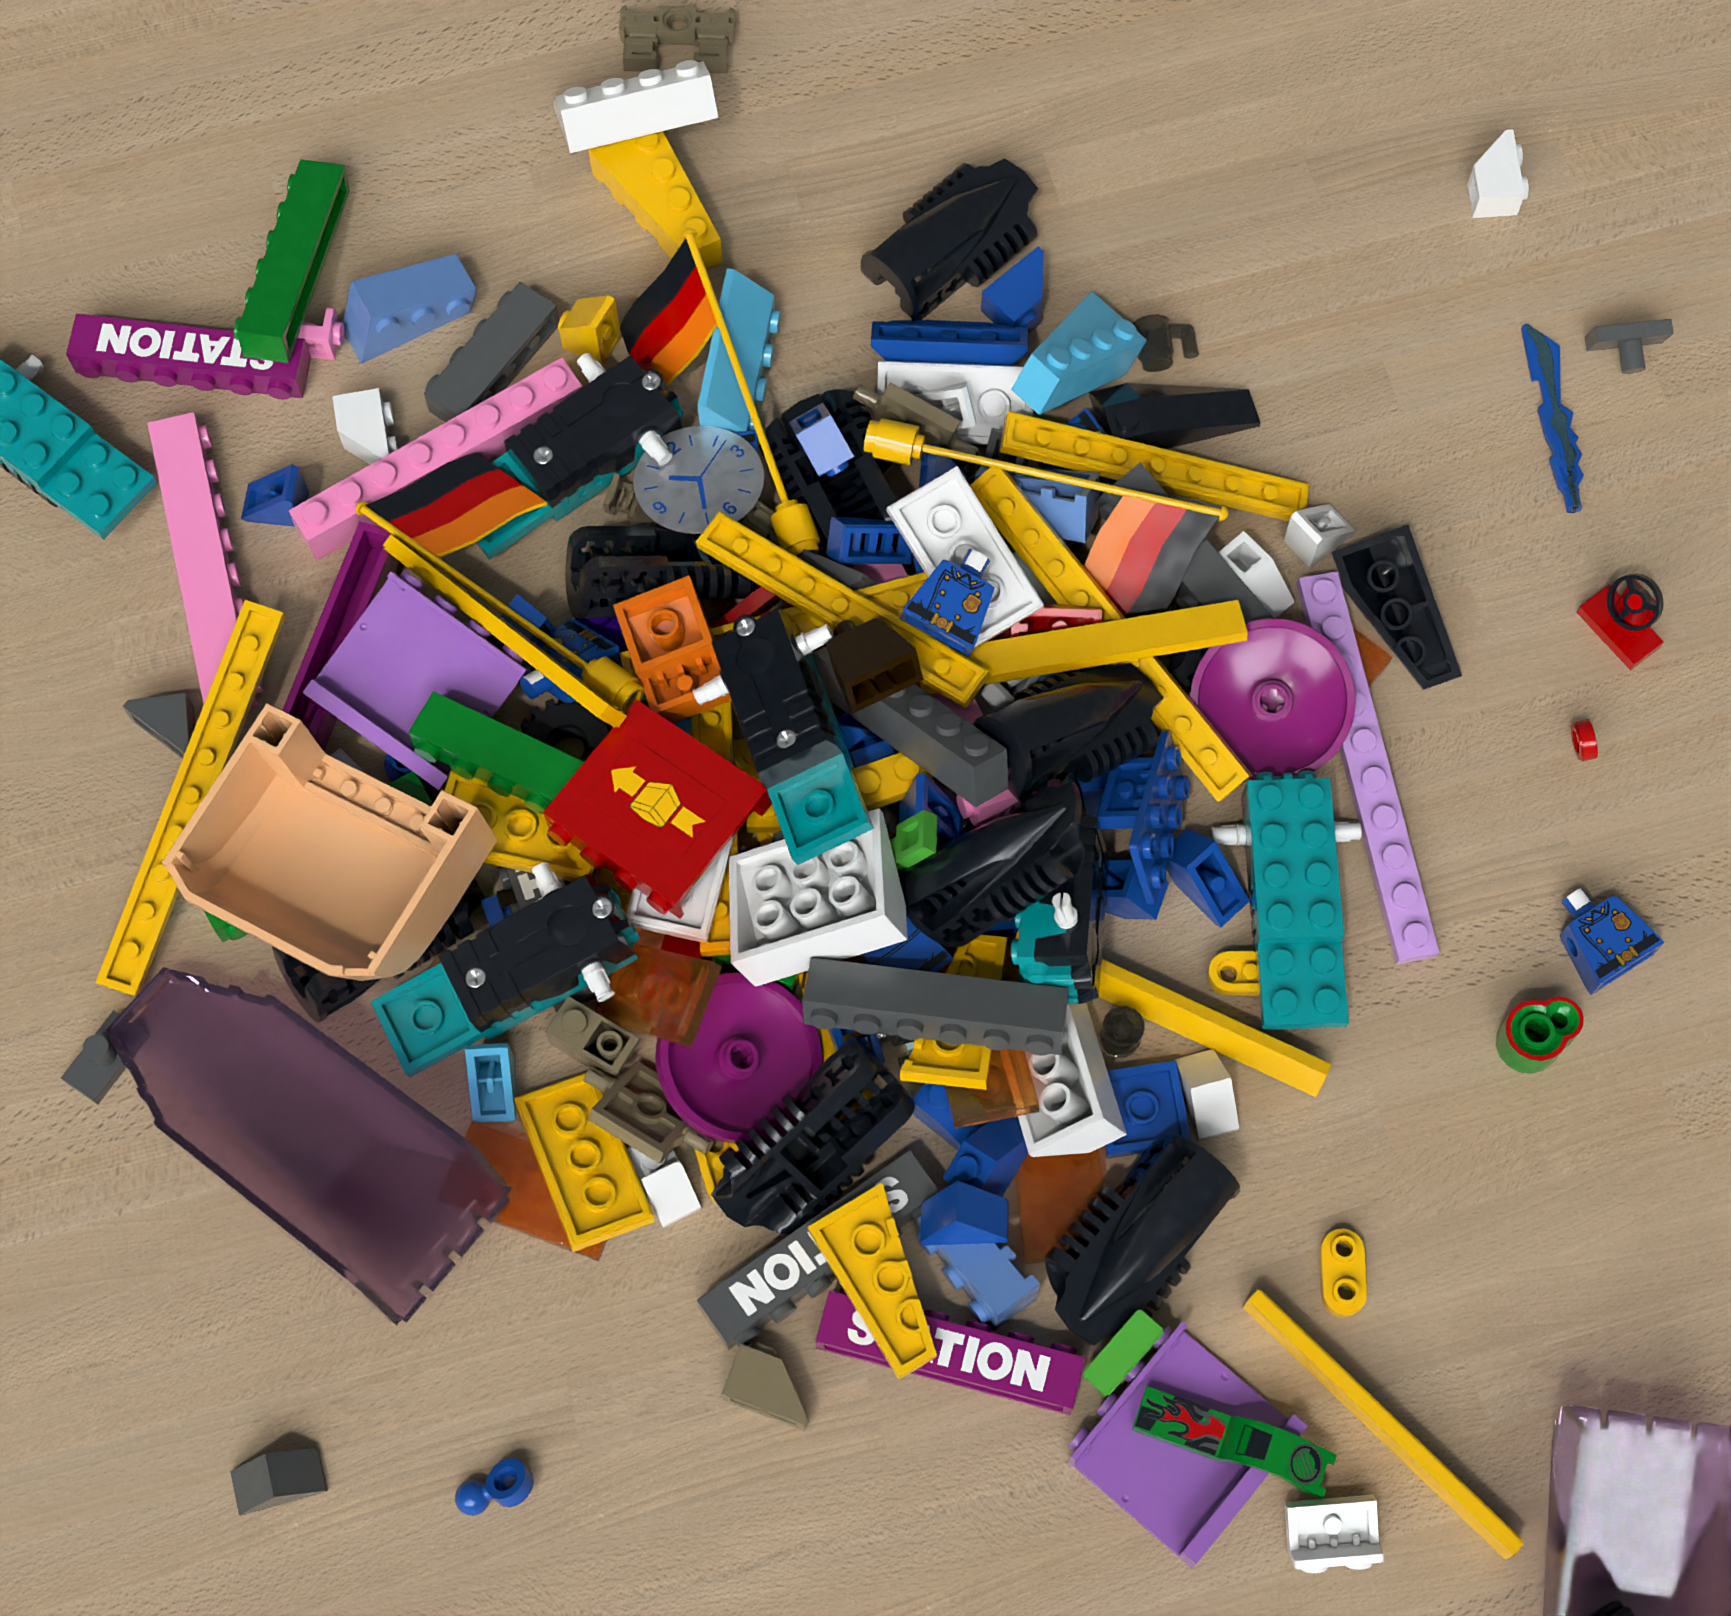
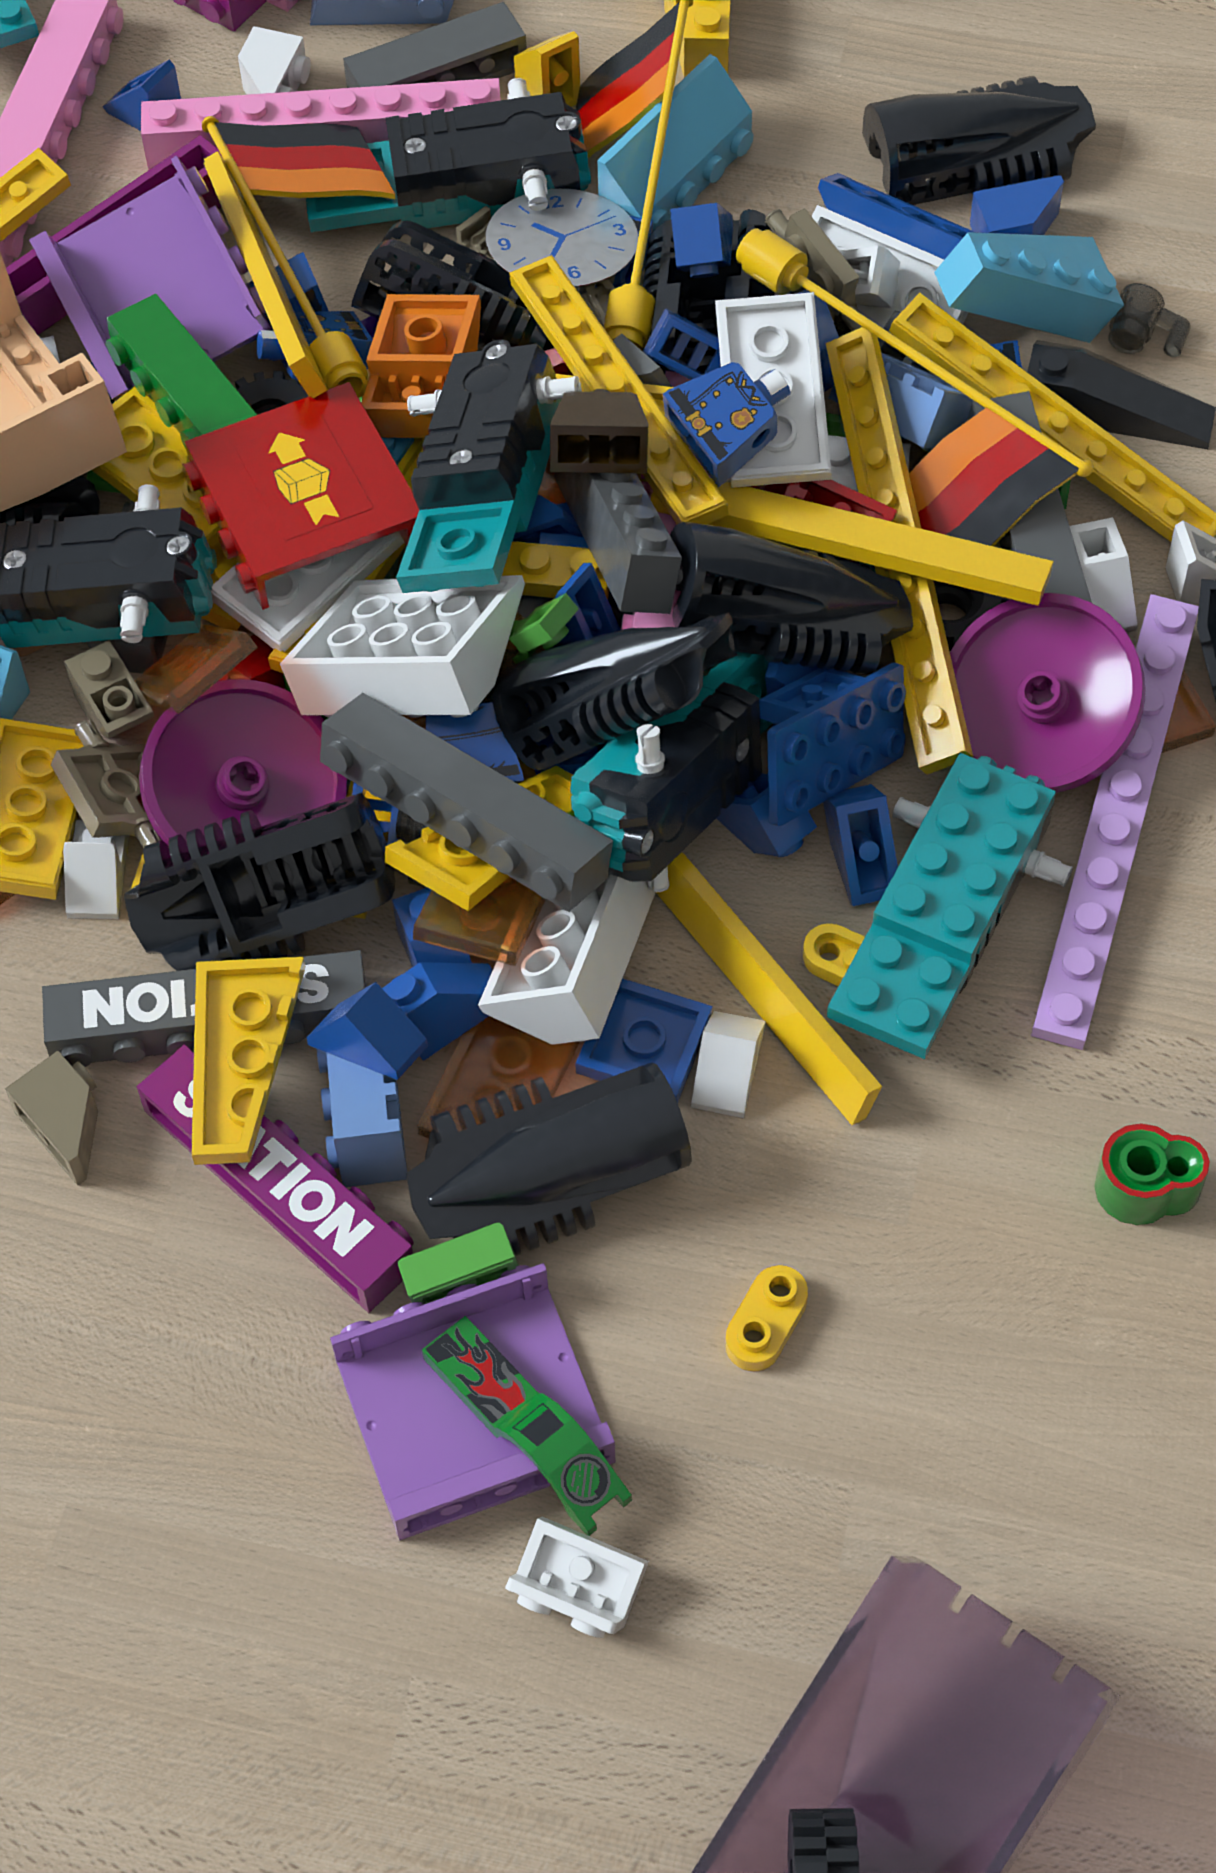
camera: 30 degrees right, 10 degrees down
(1123, 1023) = (665, 942): clear smoke wheel -> none
(1384, 1425) = (710, 1499): yellow tile -> none

